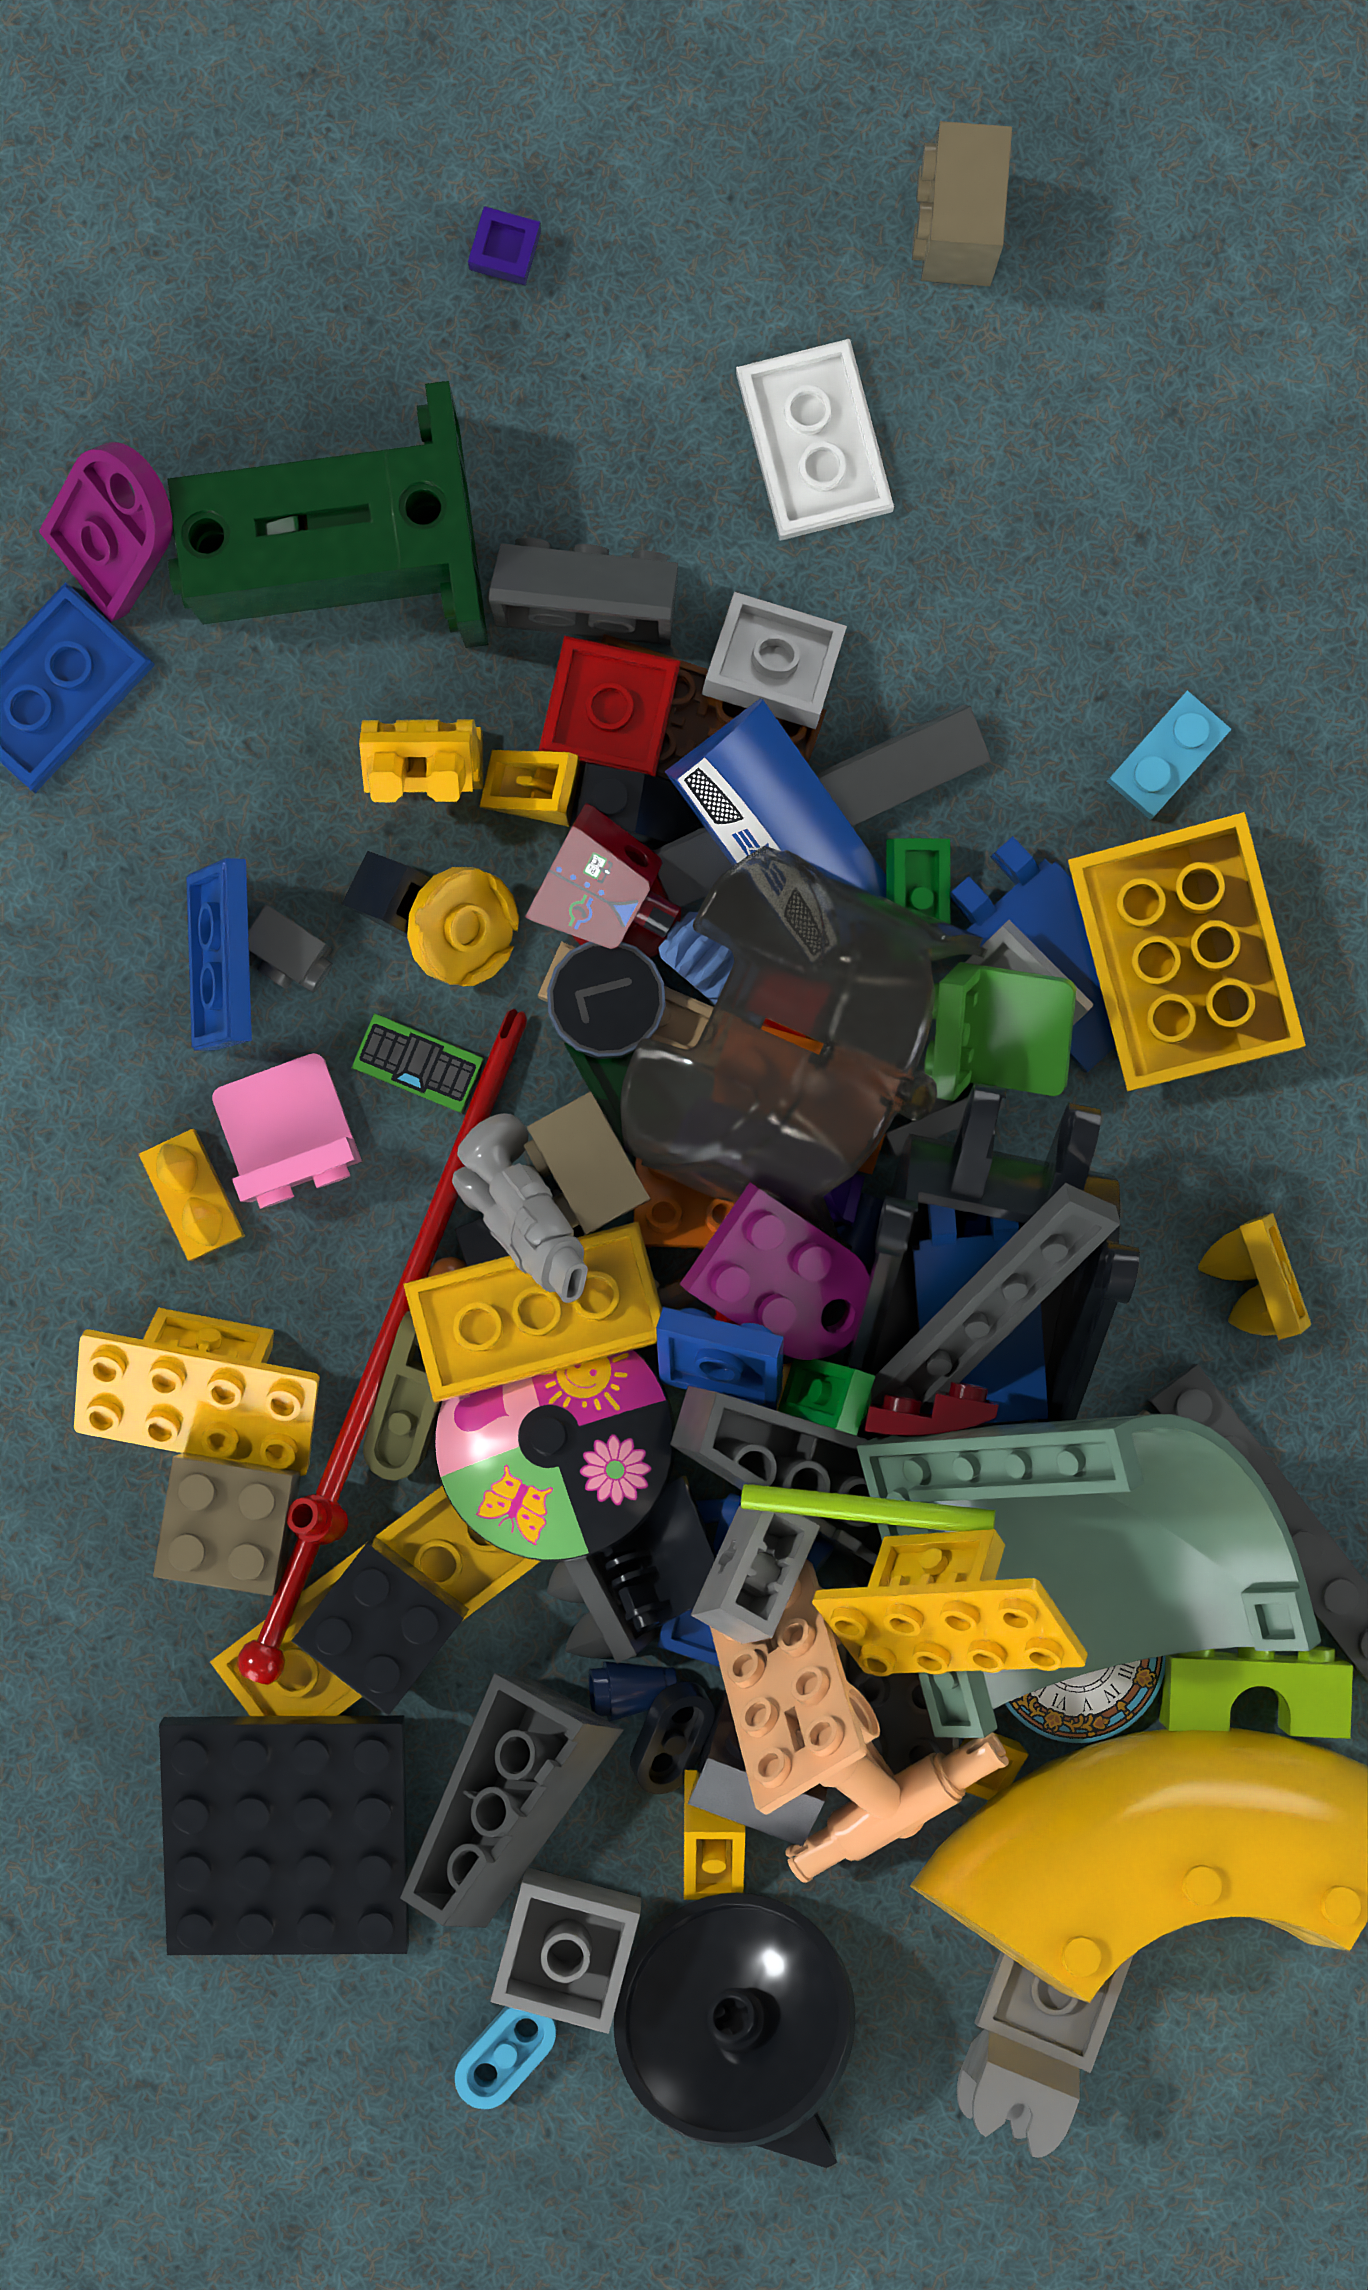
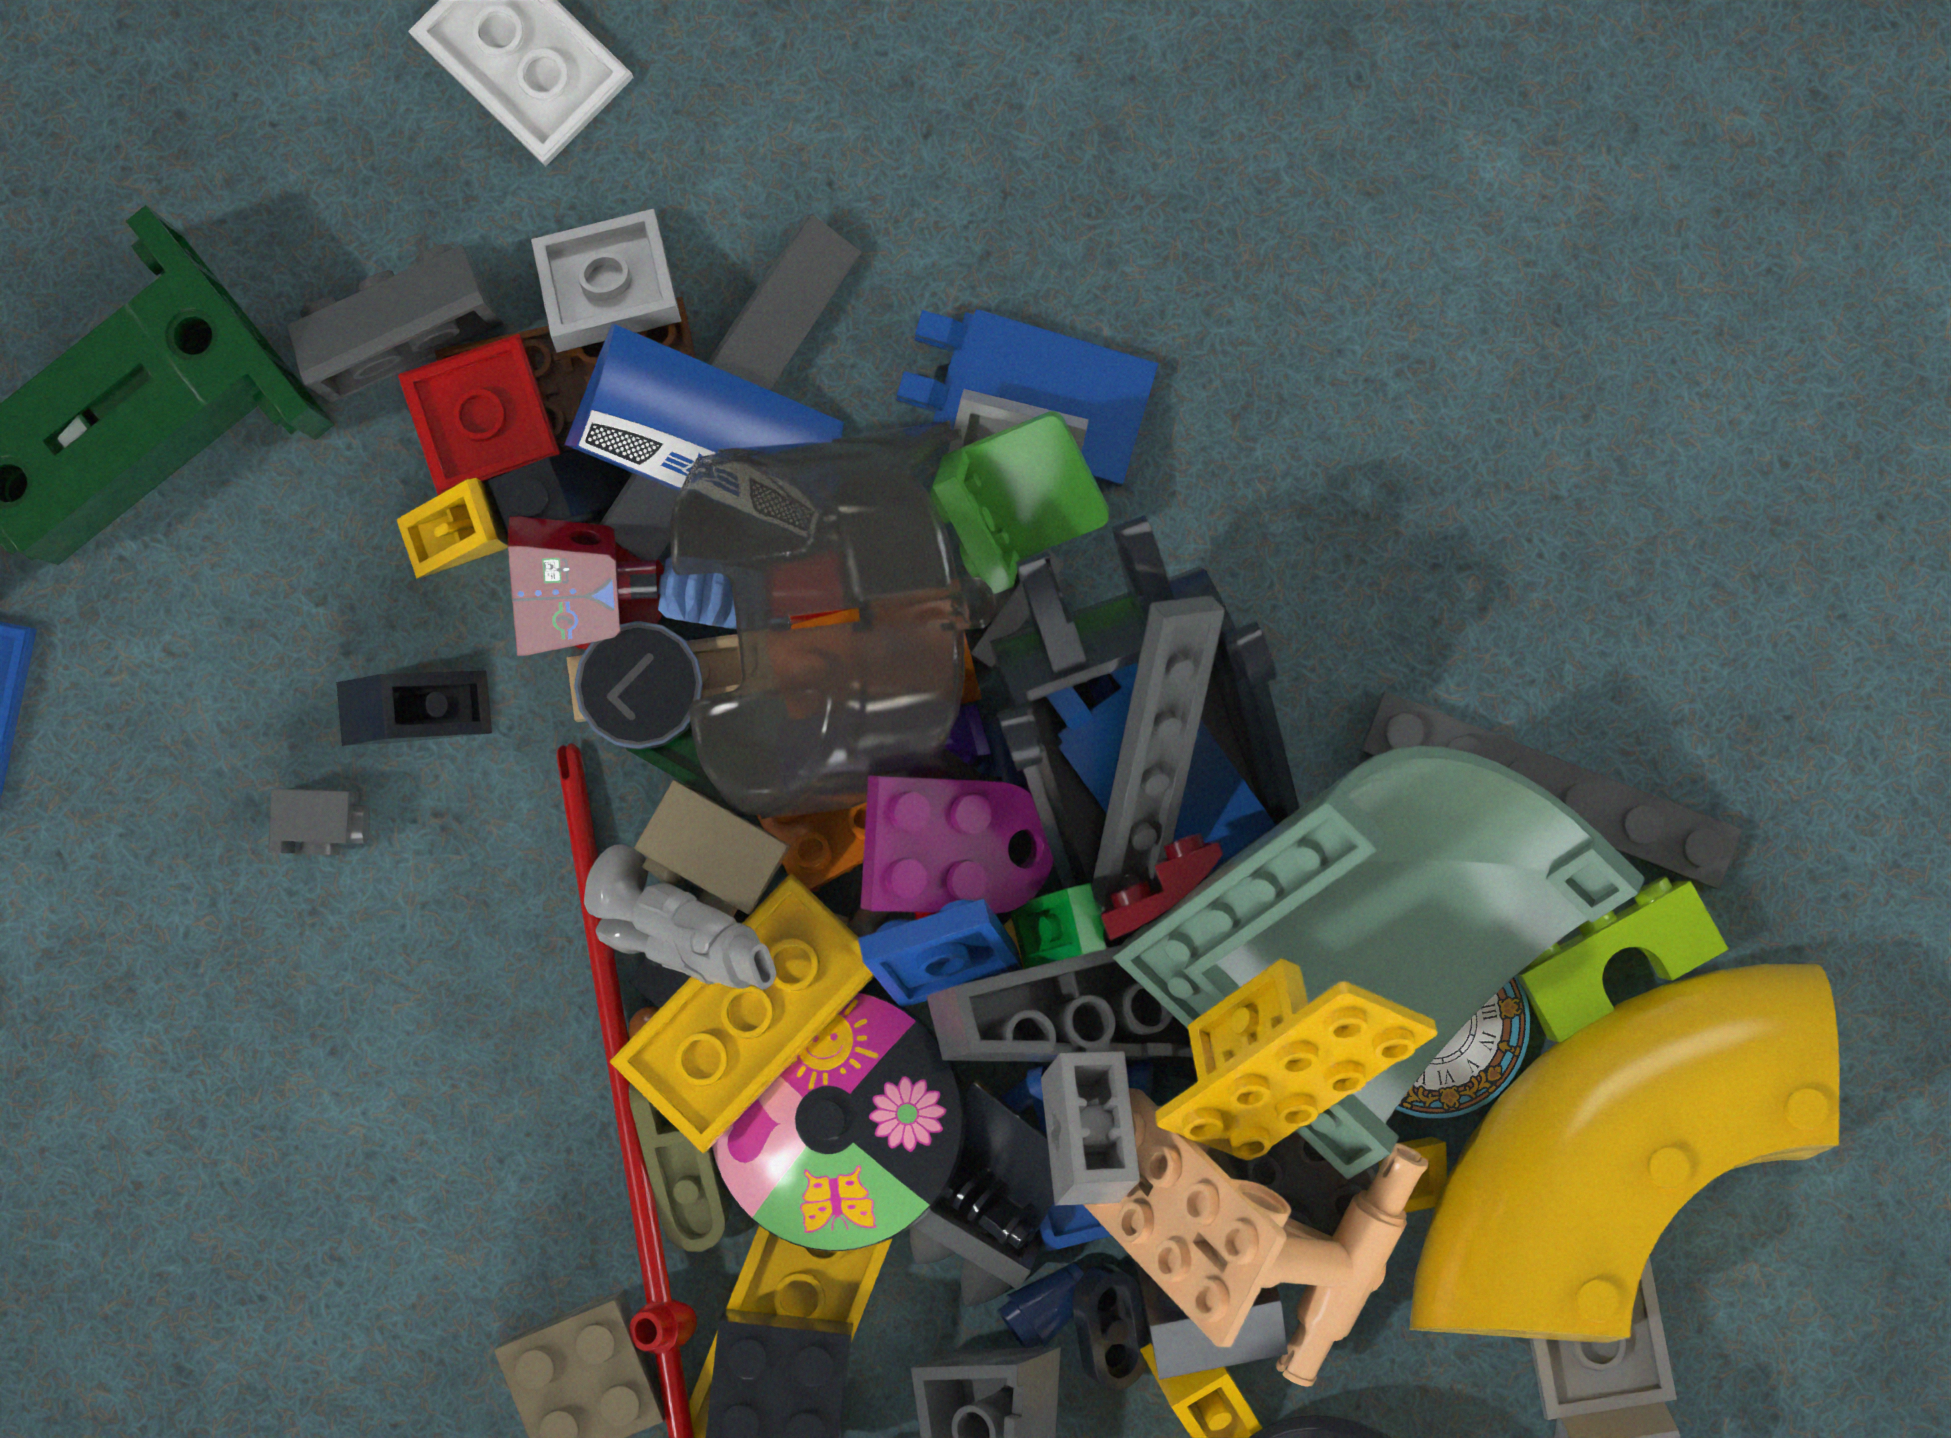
camera: 30 degrees left, 0 degrees up
(191, 1195) = (367, 1097): yellow tile -> none
(197, 1391) = (481, 1275): yellow bracket -> none
(219, 955) = (256, 862): blue tile -> none
(285, 1130) = (417, 985): bright pink bracket -> none
(418, 1063) = (503, 849): tile -> none
(421, 758) = (333, 567): yellow hips -> none
(462, 926) = (466, 698): yellow tile -> none
(504, 245) = (125, 47): dark purple plate -> none
(866, 1509) = (1154, 1010): lime bar -> none
(919, 875) = (859, 397): green plate -> none
(1169, 755) = (1021, 148): medium azure plate -> none
(1186, 952) = (1145, 321): yellow slope -> none
(1259, 1254) = (1381, 555): yellow tile -> none

